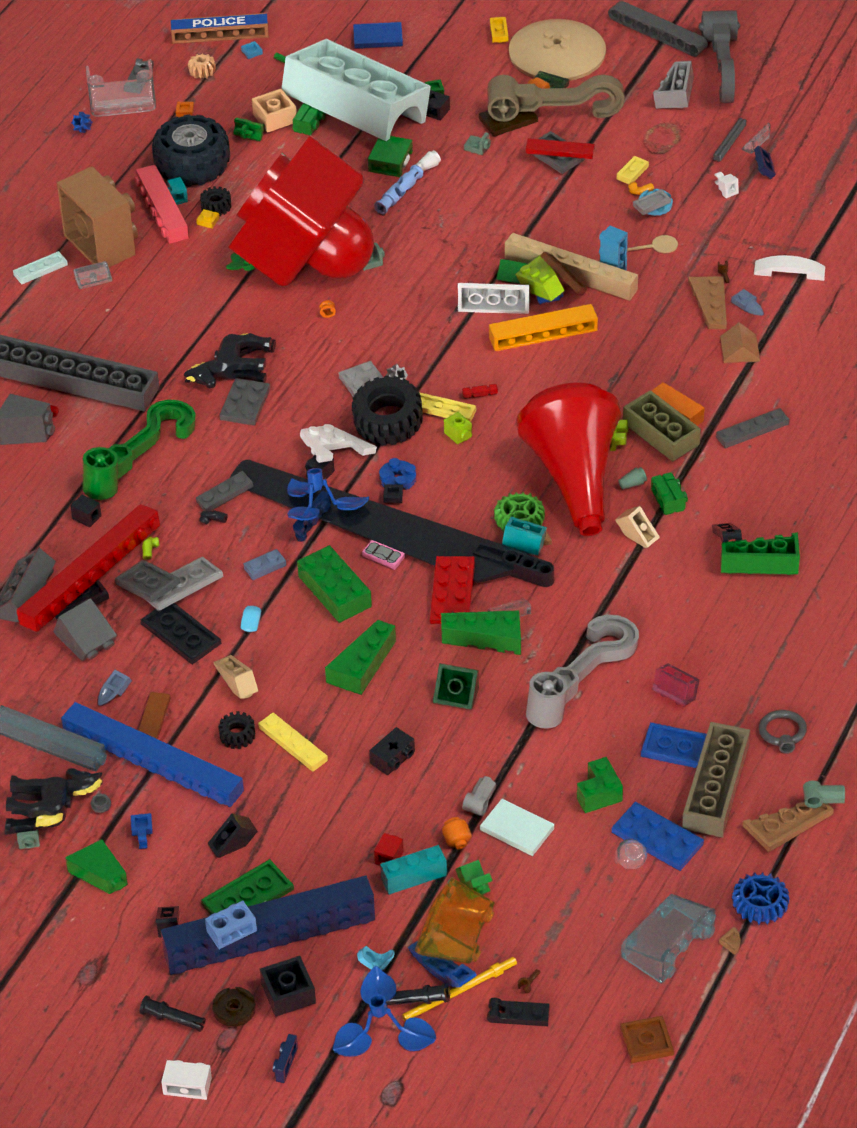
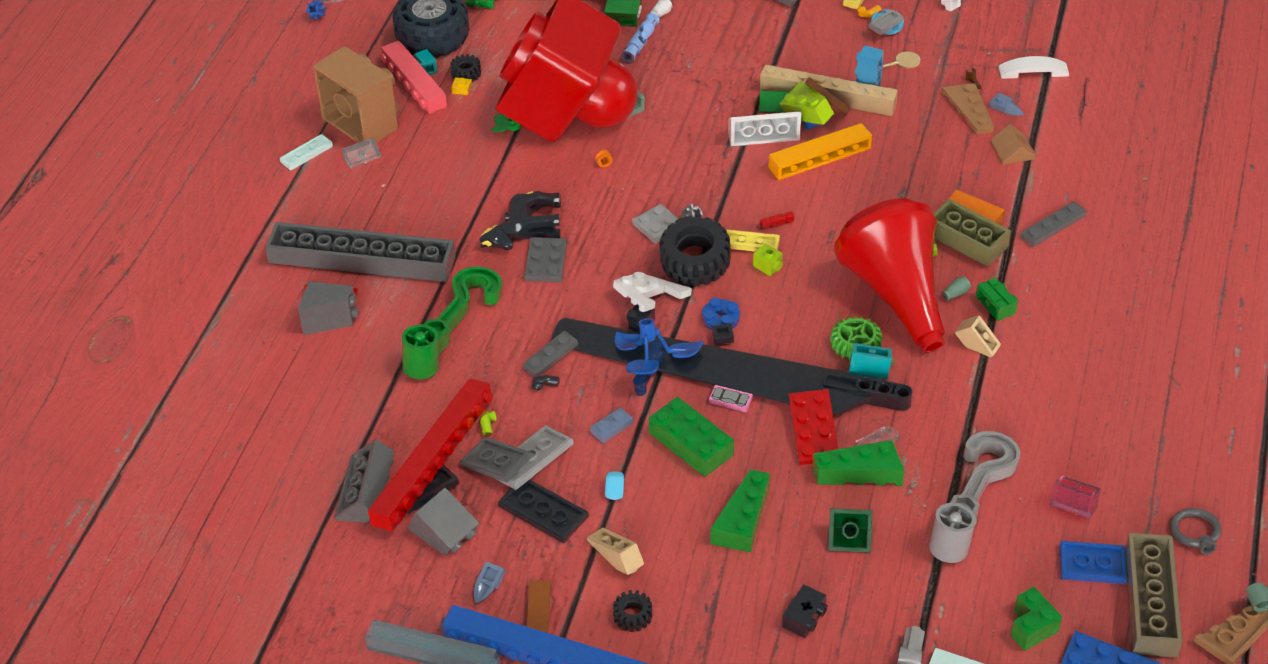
camera: 10 degrees left, 0 degrees up
(85, 510) = (412, 392): black brick -> none
(293, 742) = (695, 615): light yellow plate -> none
(727, 532) = (1071, 330): black plate -> none
(761, 556) = (1113, 350): green wedge -> none

